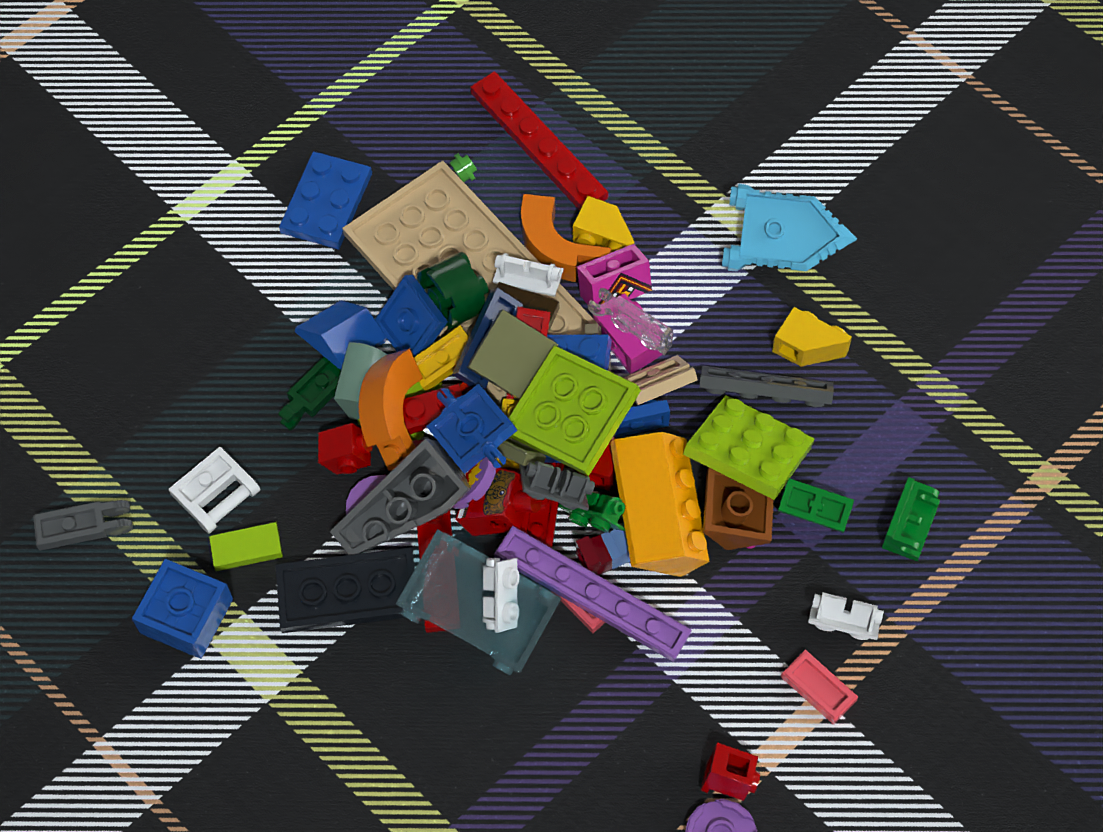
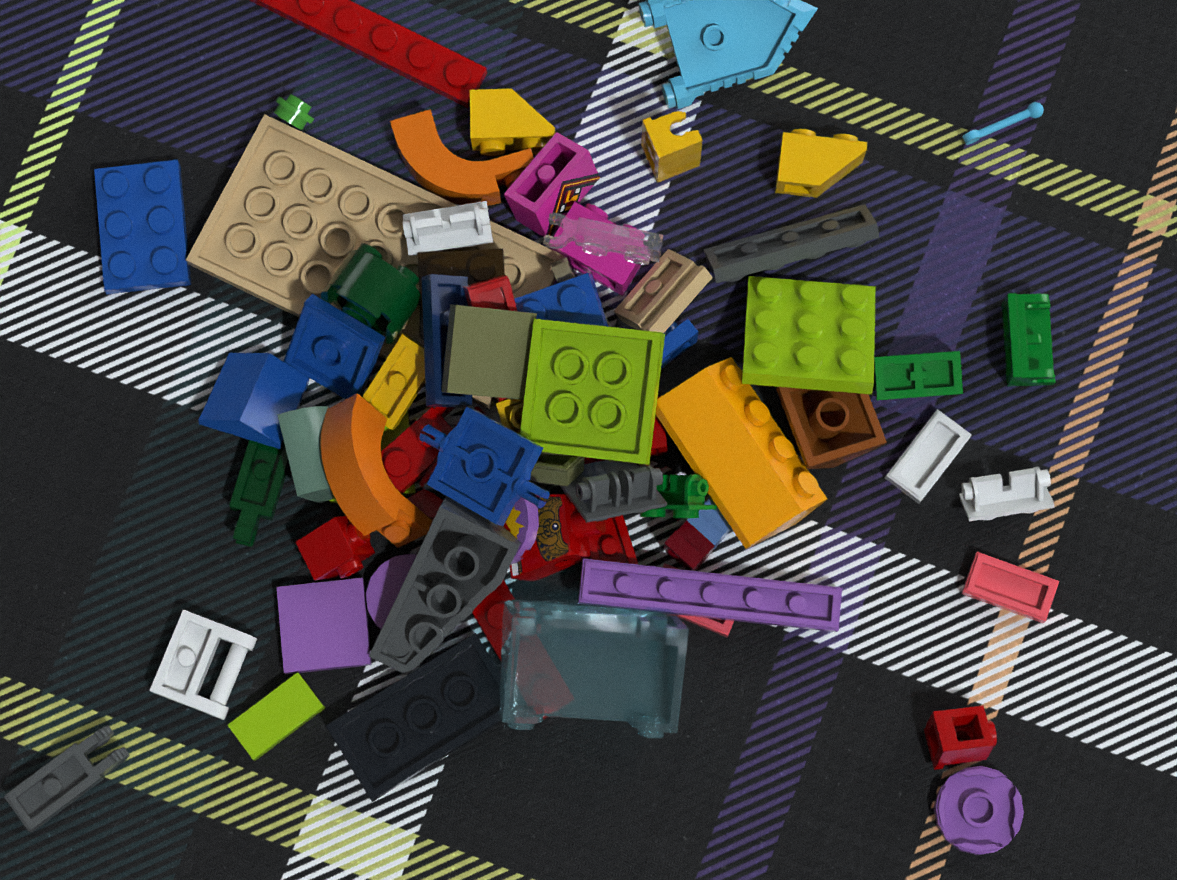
camera: 25 degrees left, 15 degrees up
(182, 608) = (246, 830): blue container -> none
(310, 501) = (323, 626): none -> medium lavender tile
(500, 610) = (619, 665): white hinge -> none
(709, 287) = (667, 152): none -> yellow hinge
(800, 570) = (928, 456): none -> white tile
(933, 369) = (1034, 110): none -> medium azure hinge

